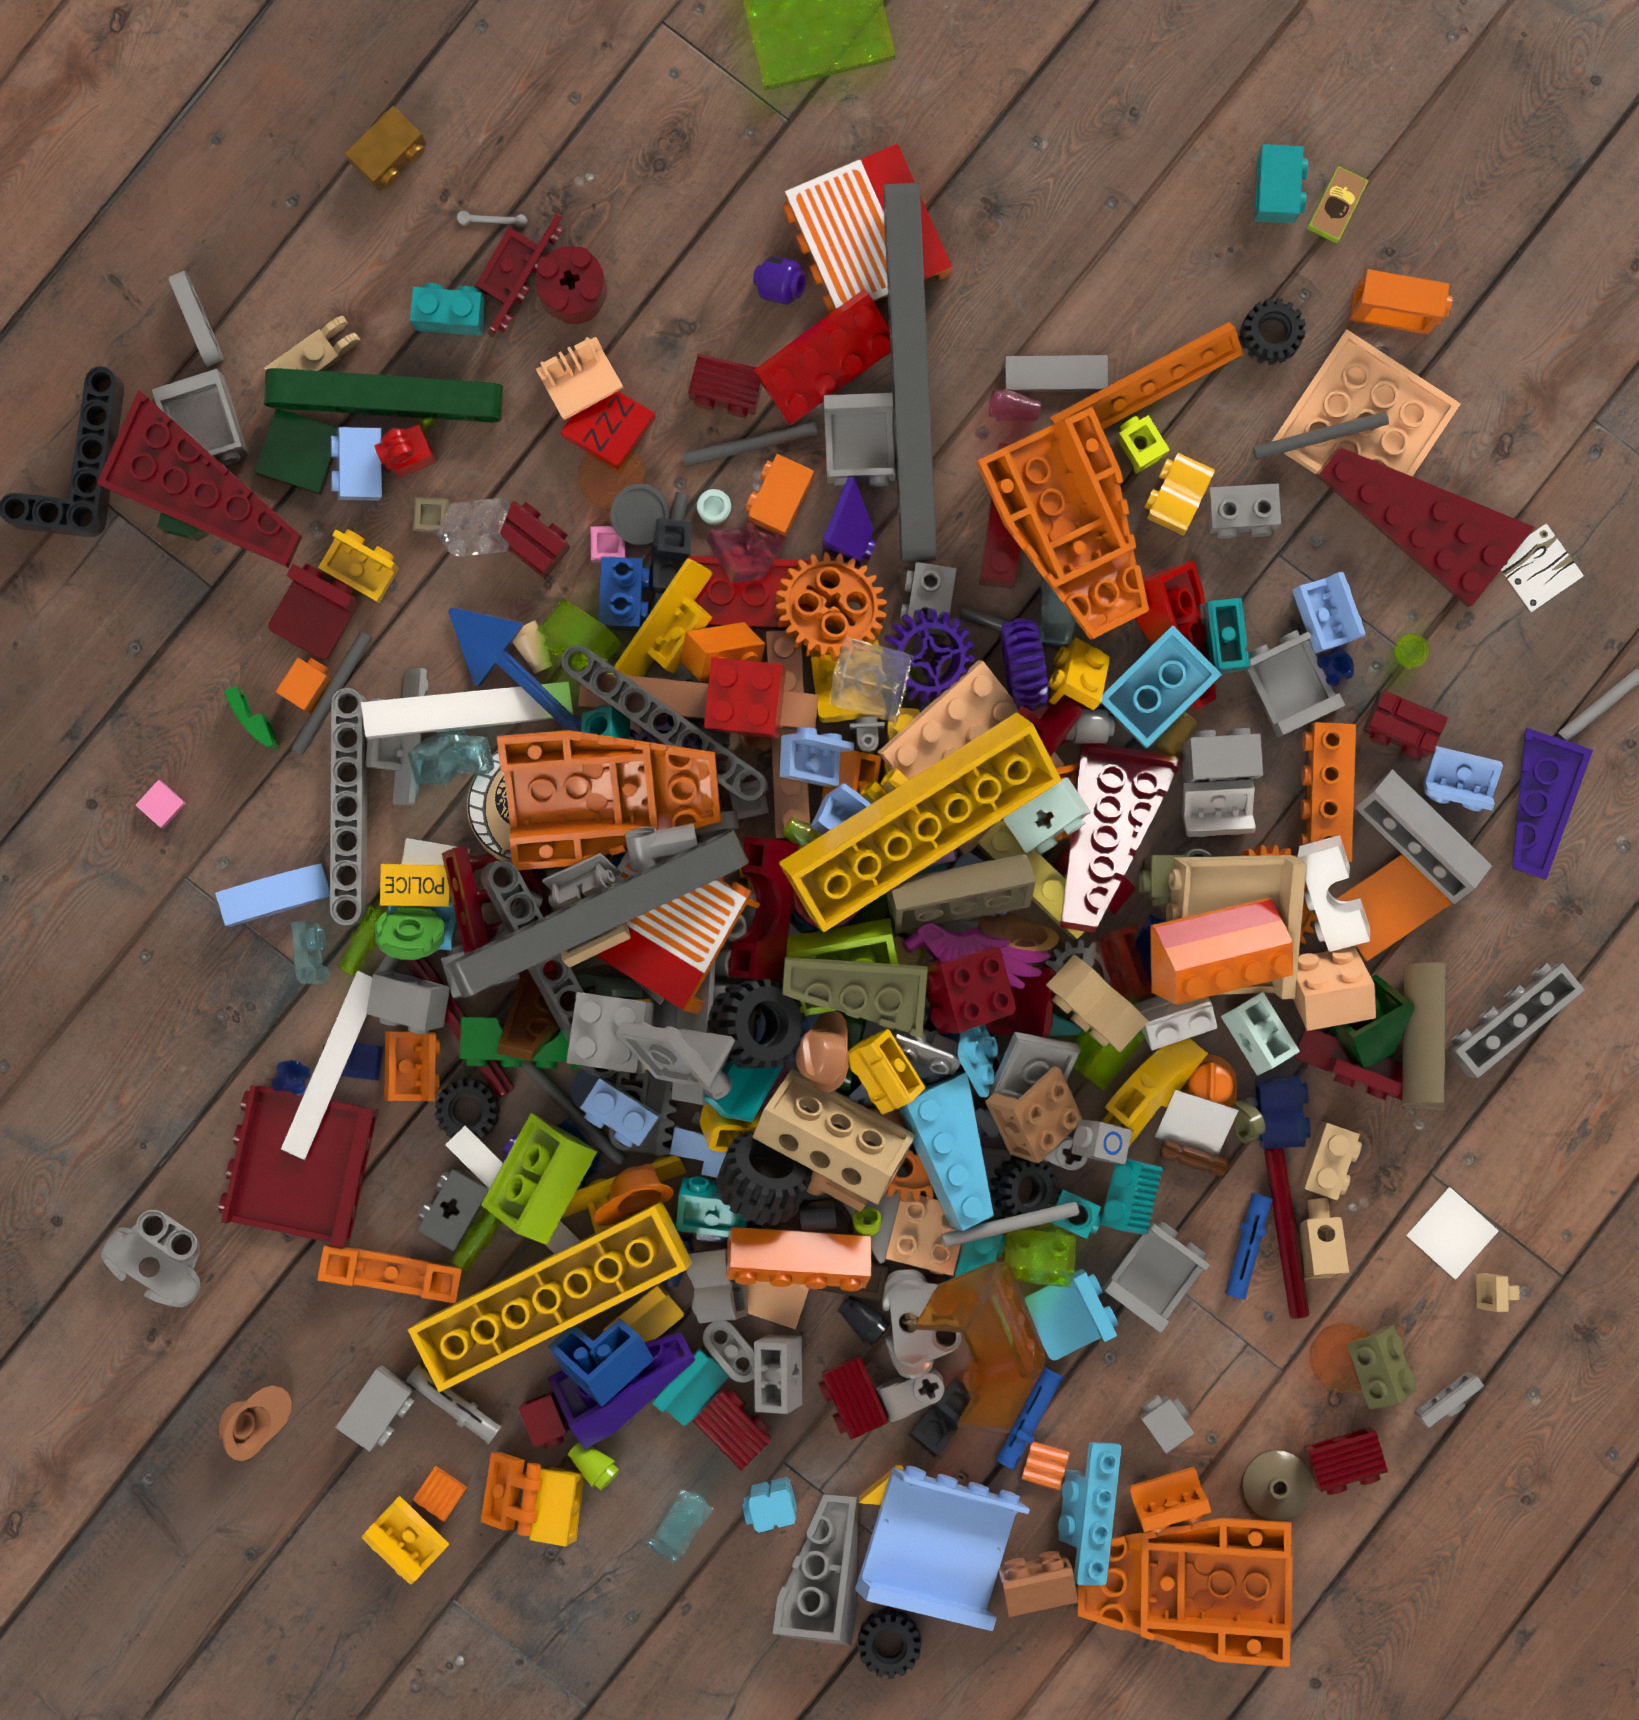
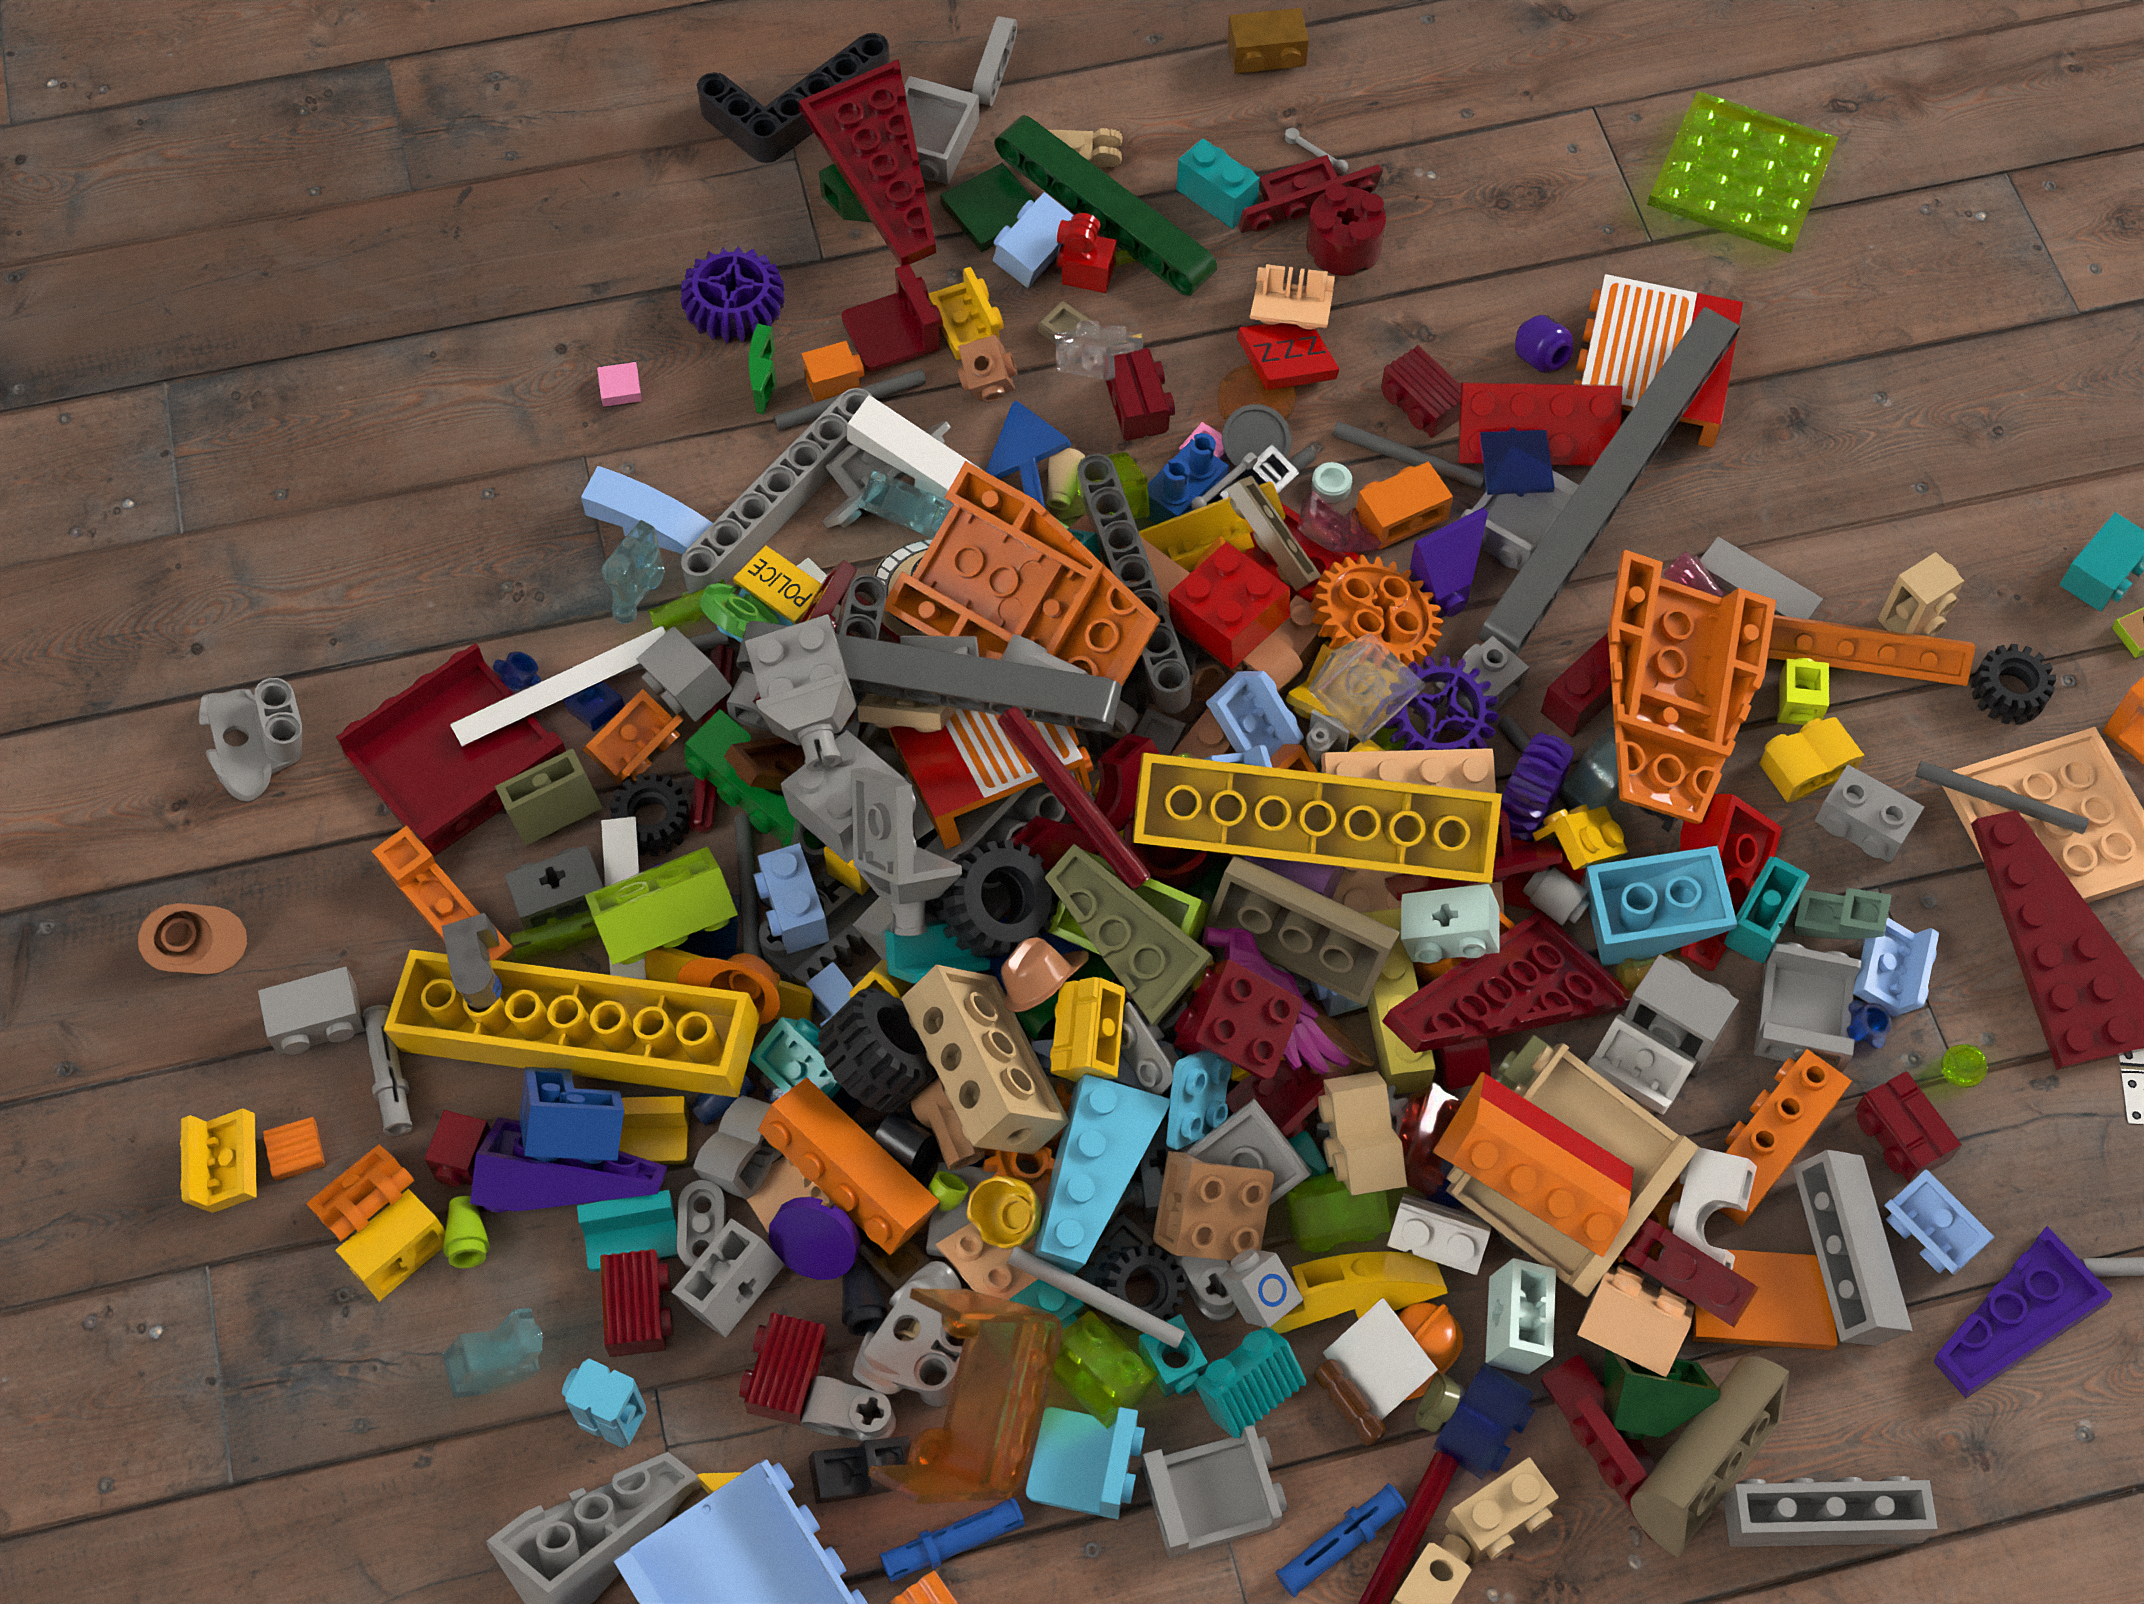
camera: 35 degrees right, 25 degrees down
(192, 666) = (732, 293): none -> dark purple gear
(395, 1153) = (548, 797): none -> olive brick
(412, 591) = (986, 369): none -> nougat brick
(460, 1315) = (469, 959): none -> flat silver leg
(530, 991) = (803, 687): none -> light grey plate
(646, 606) = (1246, 463): none -> light grey hinge
(719, 600) = (1272, 533): none -> dark tan plate
(762, 932) = (1074, 798): none -> dark red axle
(812, 1315) = (814, 1238): none -> dark purple tile
(836, 407) = (1516, 462): none -> clear blue piece
(917, 1214) = (1005, 1211): none -> yellow hair
(1179, 315) = (1922, 598): none -> tan brick
(1275, 600) = (1833, 916): none -> sand green slope
(1347, 938) = (1691, 1273): none -> dark red plate

